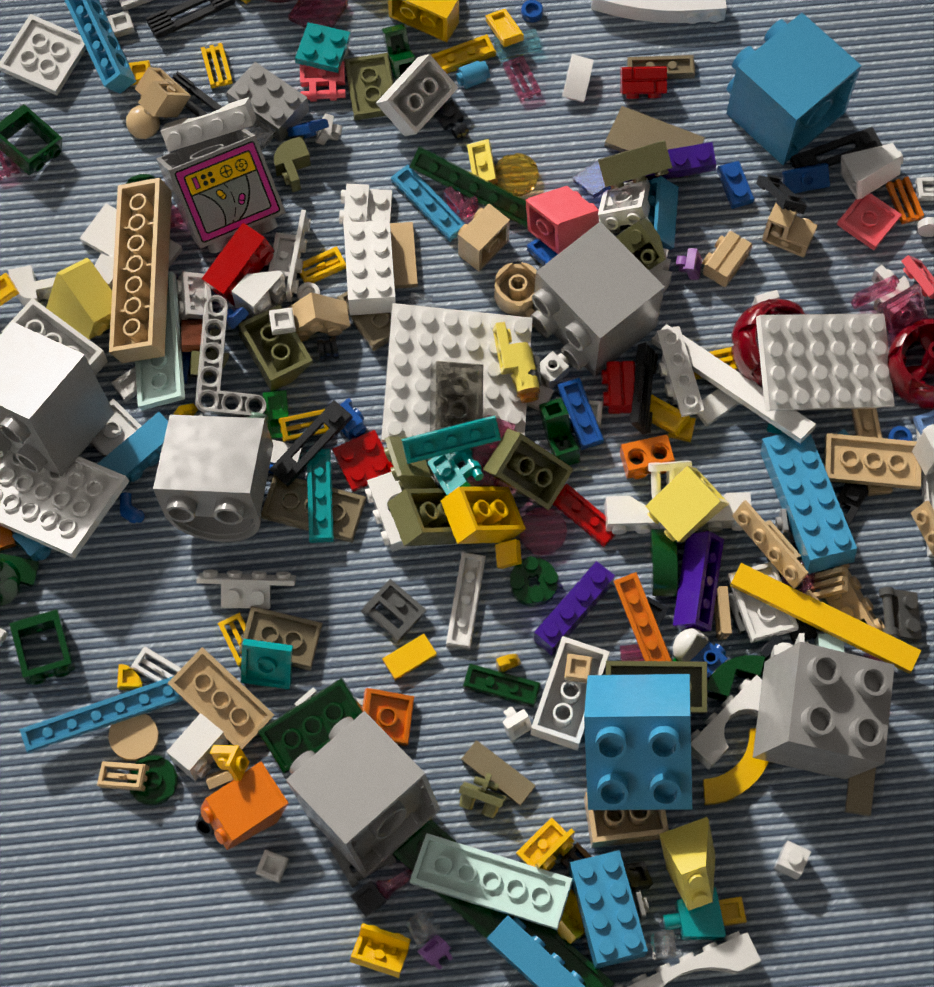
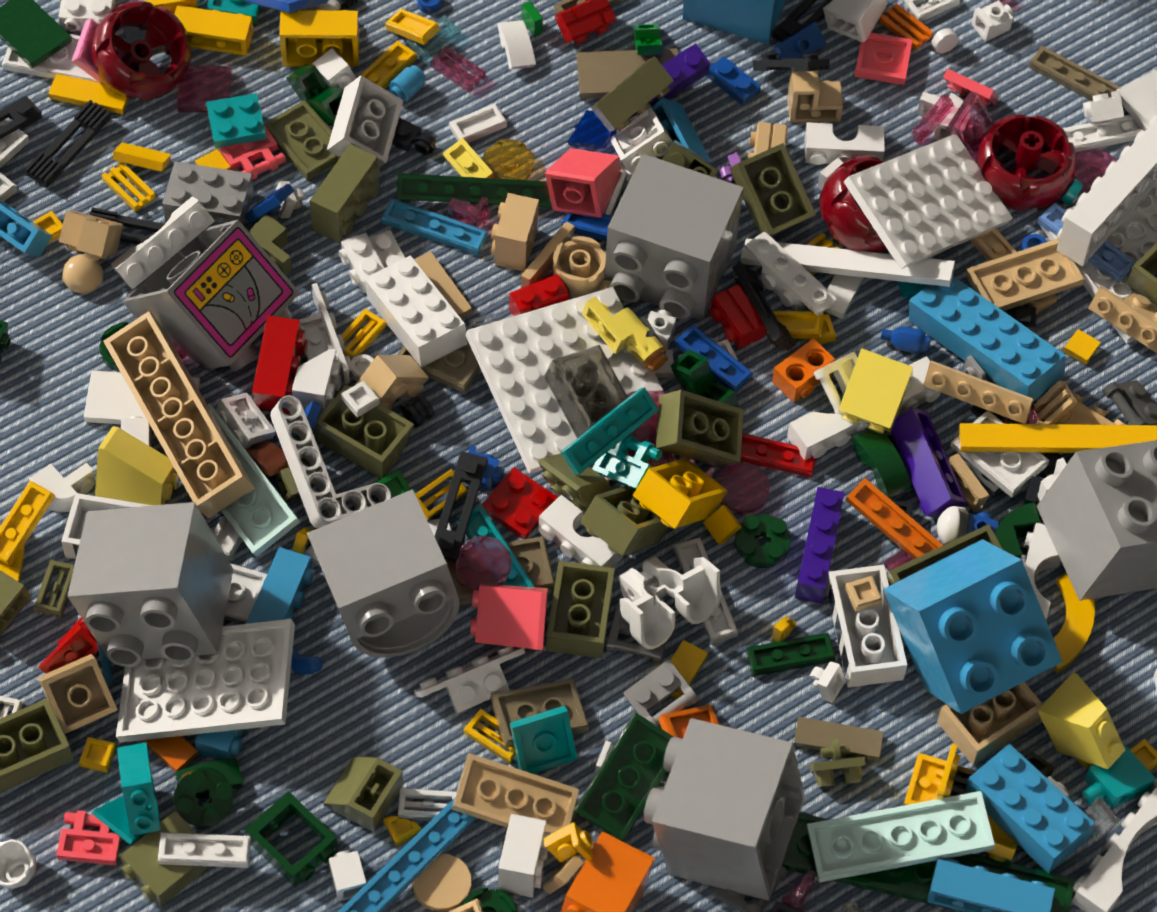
camera: 30 degrees left, 10 degrees down
(66, 694) = (347, 874): none -> white brick
(115, 637) = (365, 791): none -> olive slope
(238, 45) = (141, 156): none -> yellow tile
(290, 75) = (213, 159): none -> yellow tile
(299, 552) = (510, 616): none -> coral slope
(303, 498) = (483, 562): none -> clear pink tile
(356, 571) = (580, 609): none -> olive brick
(370, 145) = (345, 193): none -> olive brick
(377, 663) = (656, 688): none -> light grey plate
(421, 39) = (334, 70): none -> white brick
(446, 601) = (653, 620): none -> white piece
(471, 298) = (538, 295): none -> red brick
(488, 273) = (544, 260): none -> tan tile
(510, 131) = (478, 124): none -> white tile
(602, 62) = (532, 19): none -> green tile
(684, 119) = (647, 39): none -> green slope
(705, 295) = (772, 190): none -> olive brick
(747, 469) = (907, 339): none -> blue plant
(806, 292) = (824, 147): none -> white arch
(888, 542) = (1081, 347): none -> yellow tile

